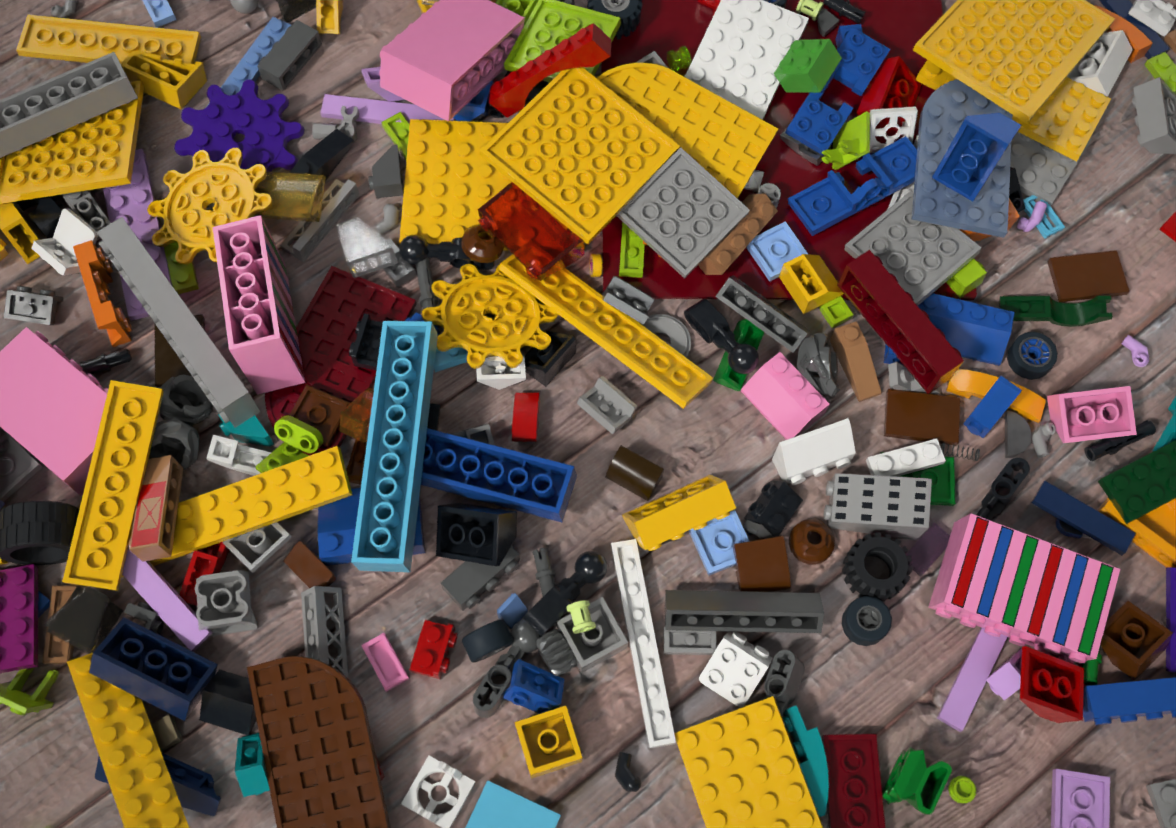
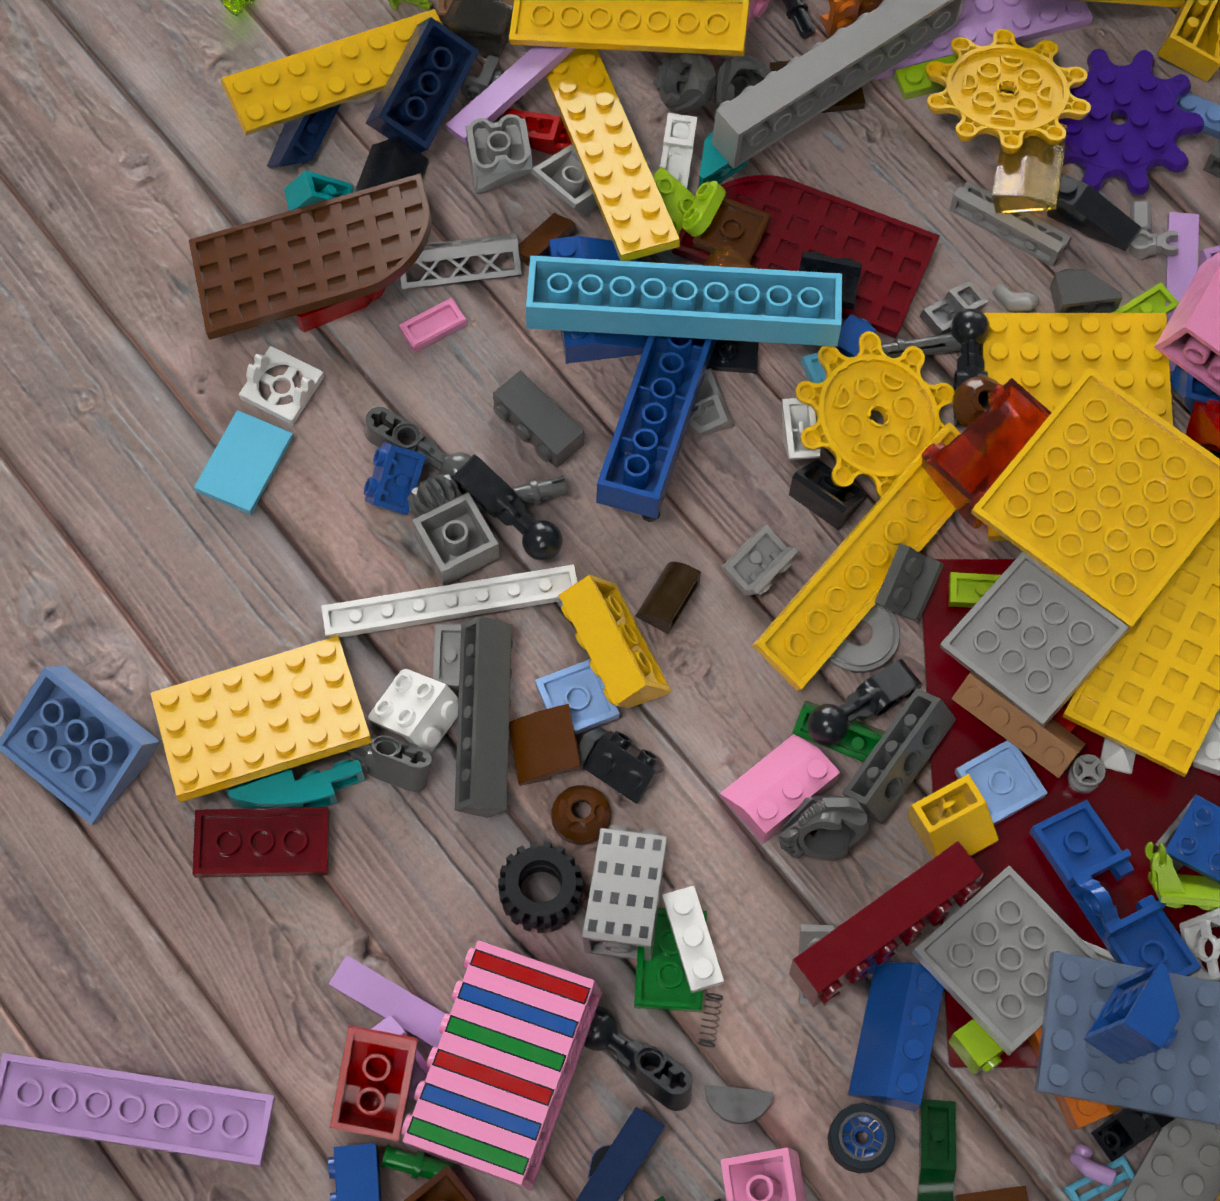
camera: 90 degrees right, 0 degrees up
(157, 510) = (604, 69): medium nougat brick -> none
(166, 732) = (356, 114): dark tan slope -> none
(257, 305) = (860, 141): bright pink brick -> none
(364, 247) = (964, 265): clear slope -> none
(433, 648) = (445, 374): red bracket -> none
(475, 533) = (581, 402): black slope -> none
(487, 640) = (450, 424): black wheel -> none
(512, 610) = (492, 452): medium blue slope -> none
(525, 417) = (738, 464): red slope -> none
(548, 742) = (330, 492): yellow brick -> none
(581, 616) = (469, 513): yellowish green bush -> none
(595, 265) = (965, 549): yellow tile -> none
(624, 775) = (293, 579): black arm -> none
(815, 452) = (697, 815): white slope -> none
(836, 312) = (911, 859): lime plate -> none
(856, 360) = (839, 885): medium nougat slope -> none
(870, 612) = (468, 860): black wheel -> none
(915, 782) = (261, 905): green piece -> none
(922, 417) = (758, 973): reddish brown tile -> none
(928, 549) = (565, 954): clear purple tile -> none
(962, 789) = (256, 977): lime plate -> none
(977, 384) = (799, 1083): light orange slope -> none
(992, 407) = (763, 1052): blue slope -> none
(1040, 438) = (735, 1137): light grey arm -> none

